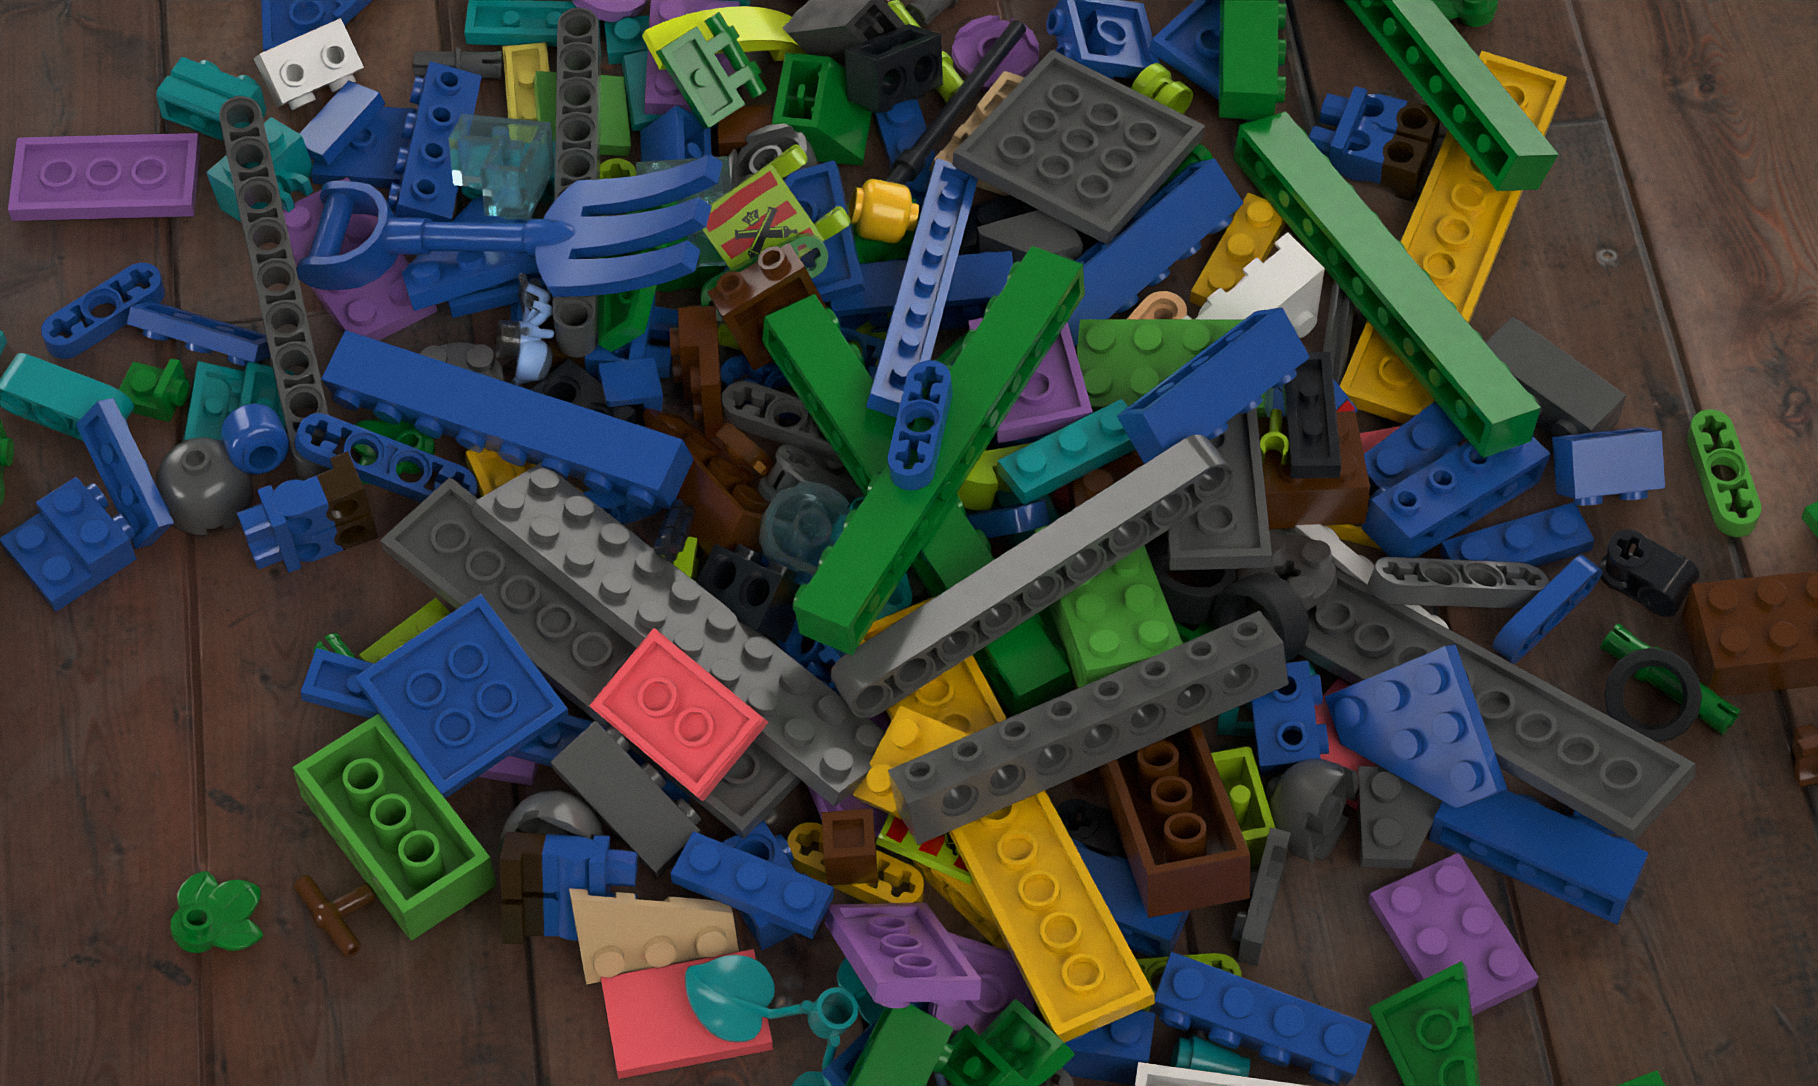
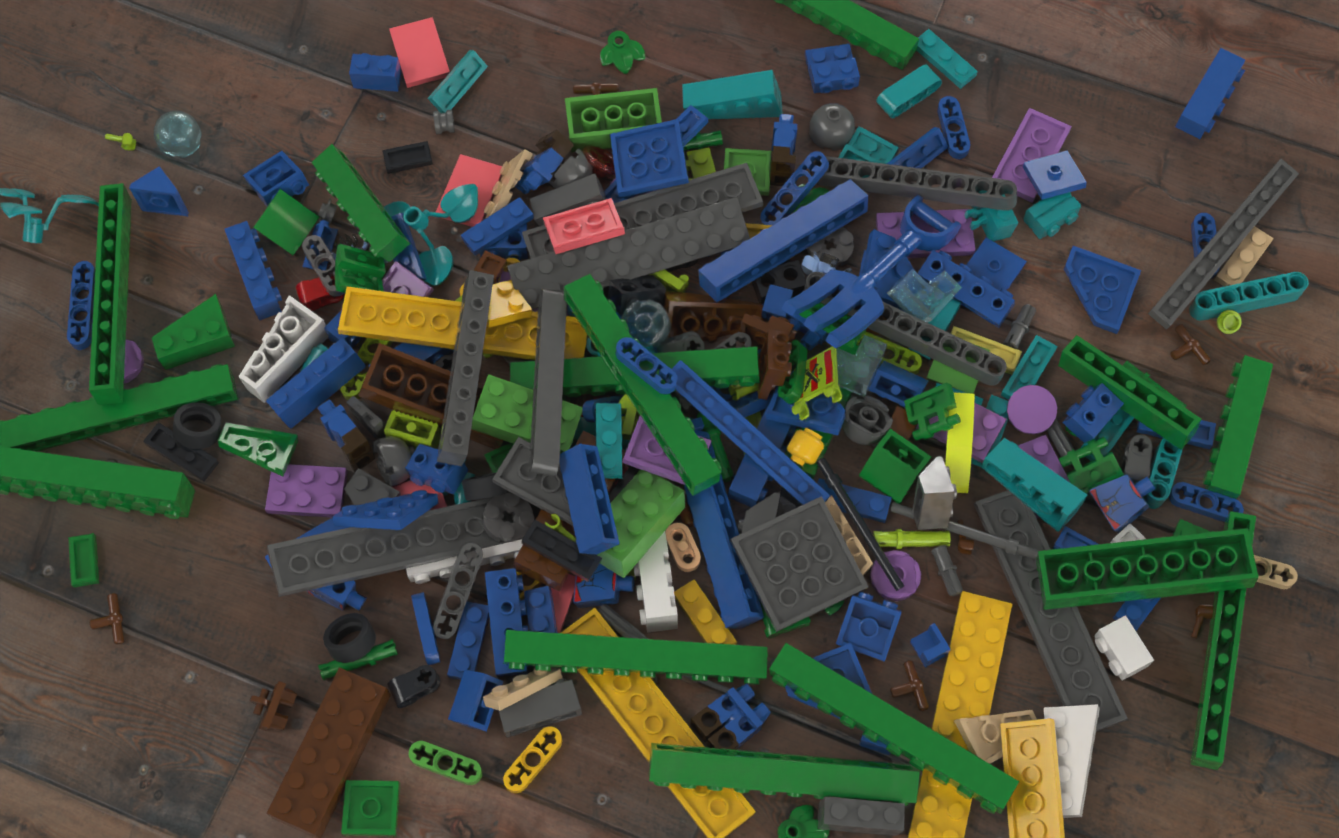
camera: 120 degrees right, 10 degrees up
(124, 472) = (849, 93): blue plate -> none
(142, 108) = (1054, 175): none -> plate
(156, 390) = (896, 129): green bracket -> none
(233, 654) = (736, 96): none -> teal wedge
(255, 439) = (835, 143): blue head -> none
(308, 64) = (1050, 258): white brick -> none
(340, 121) = (1006, 255): tile -> none
(367, 579) = (758, 162): none -> bright green plate
(497, 802) = (600, 160): none -> clear red piece
(674, 530) = (682, 276): black axle -> none
(743, 450) = (718, 335): clear orange tile -> none
(894, 68) = (895, 503): black brick -> none
(903, 954) = (423, 254): medium lavender plate -> none
(1157, 84) = (819, 634): lime wheel -> none
(1312, 925) = (347, 435): none -> hips
(1571, 405) = (520, 688): none -> tan plate
(1642, 351) = (515, 770): none -> yellow beam

